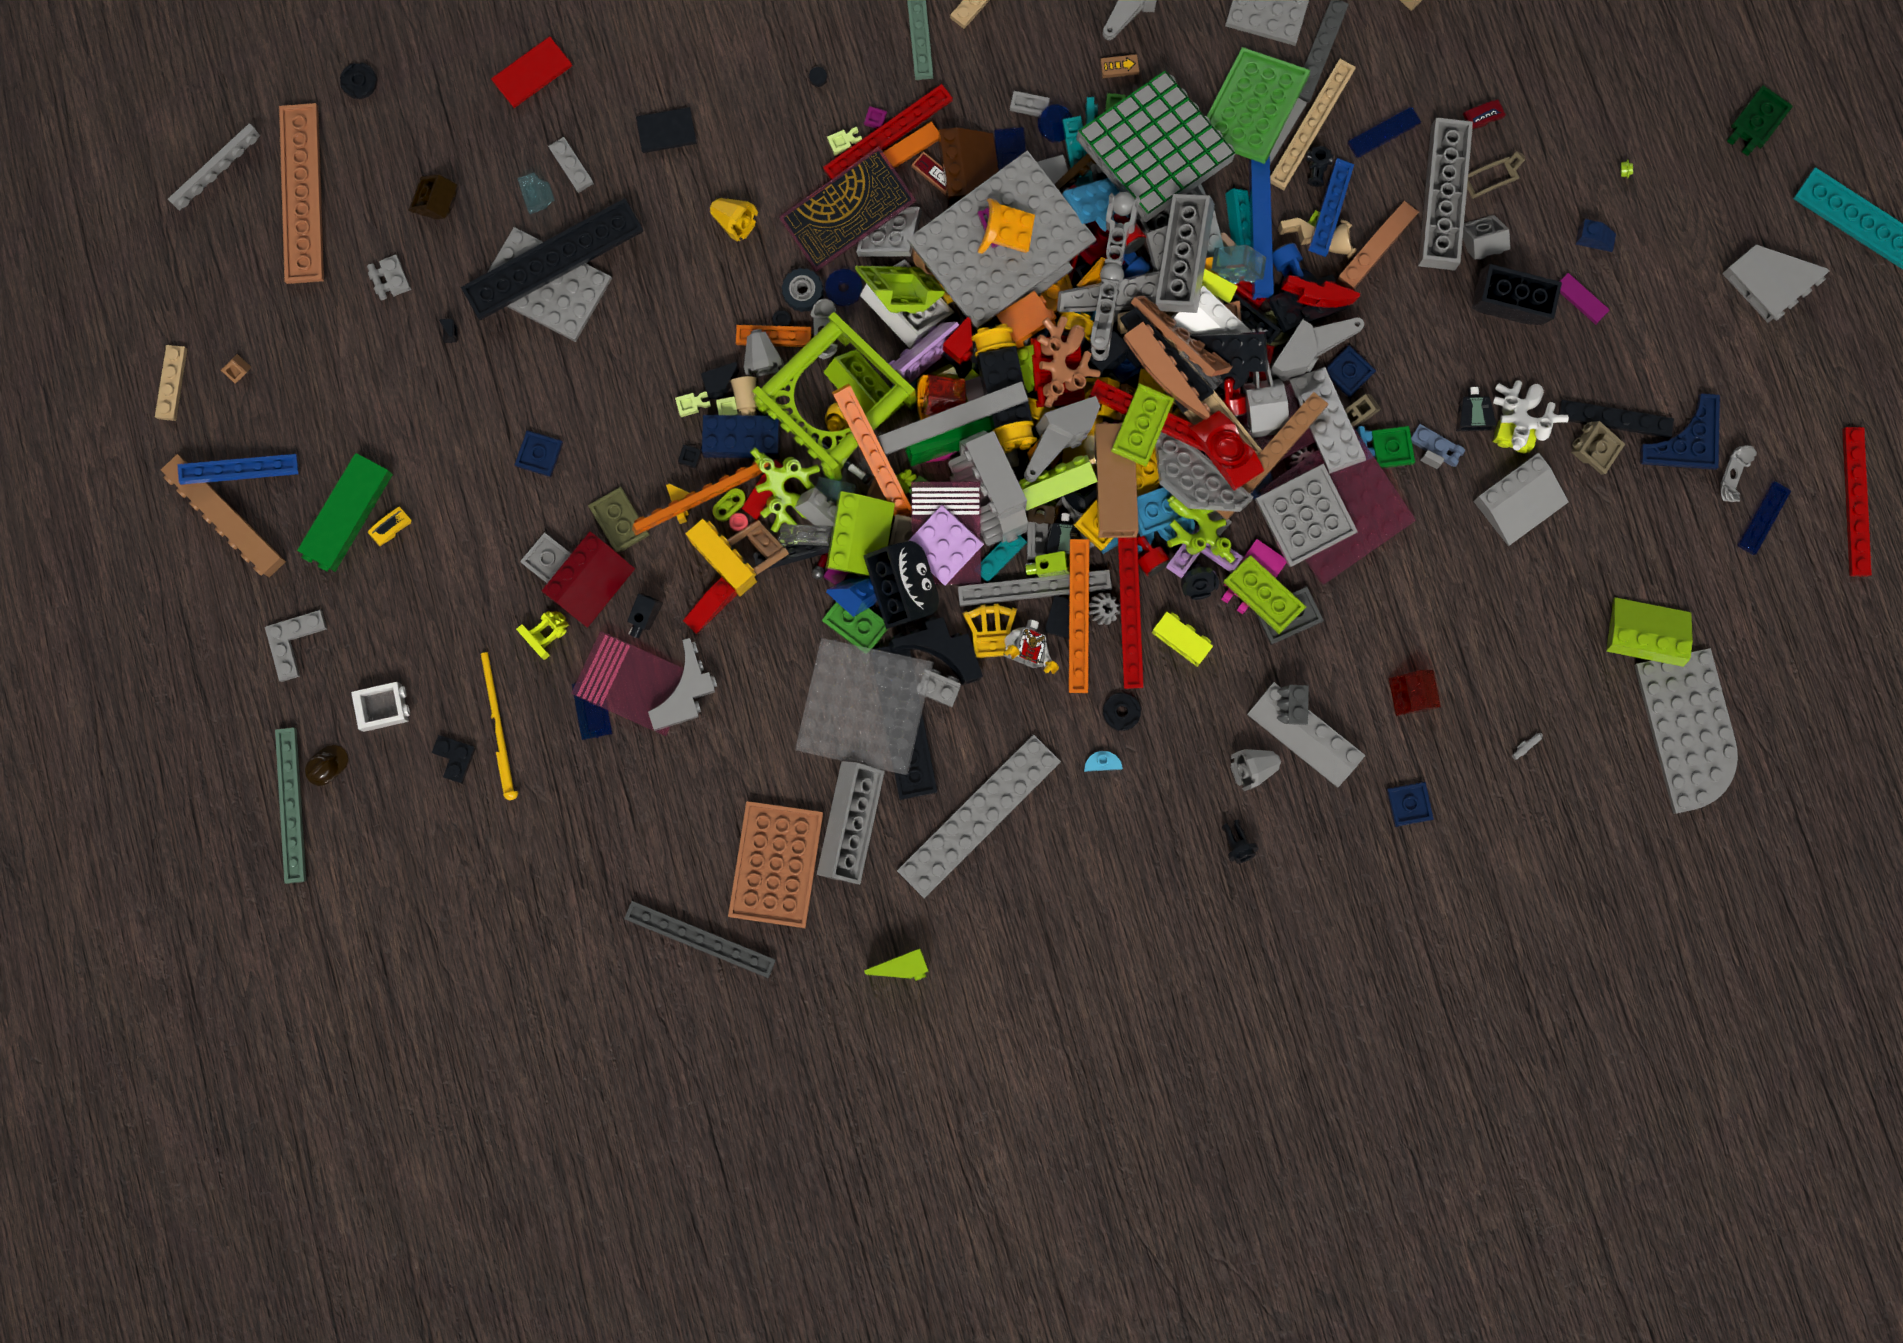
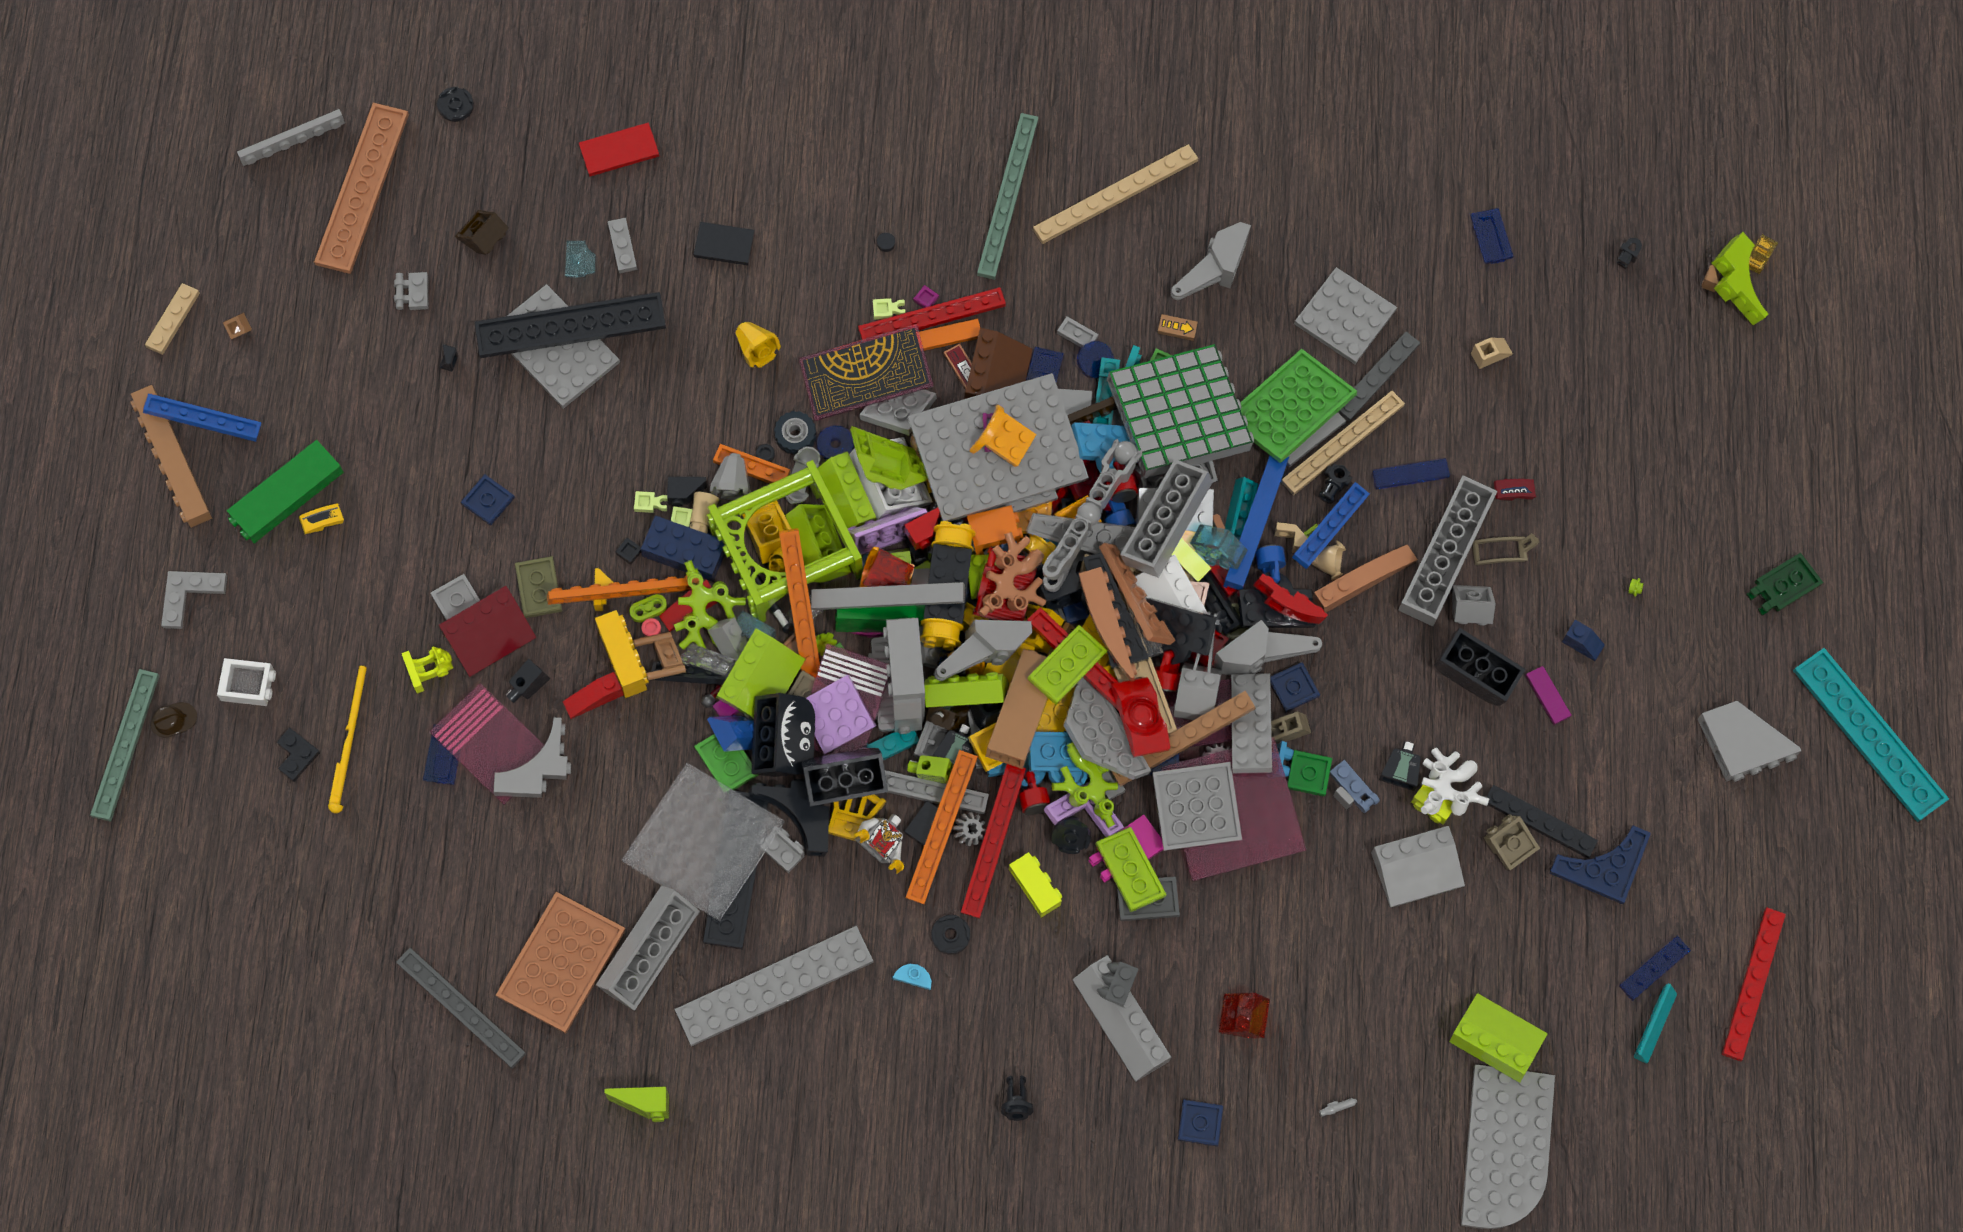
camera: 15 degrees right, 10 degrees down
(814, 393) = (765, 529): none -> yellow slope
(873, 328) = (846, 490): none -> lime slope
(975, 601) = (844, 776): none -> black brick
(1254, 767) = (1059, 1031): light grey cone -> none
(1739, 458) = (1649, 901): light grey piece -> none
(1782, 569) = (1655, 1024): none -> teal slope

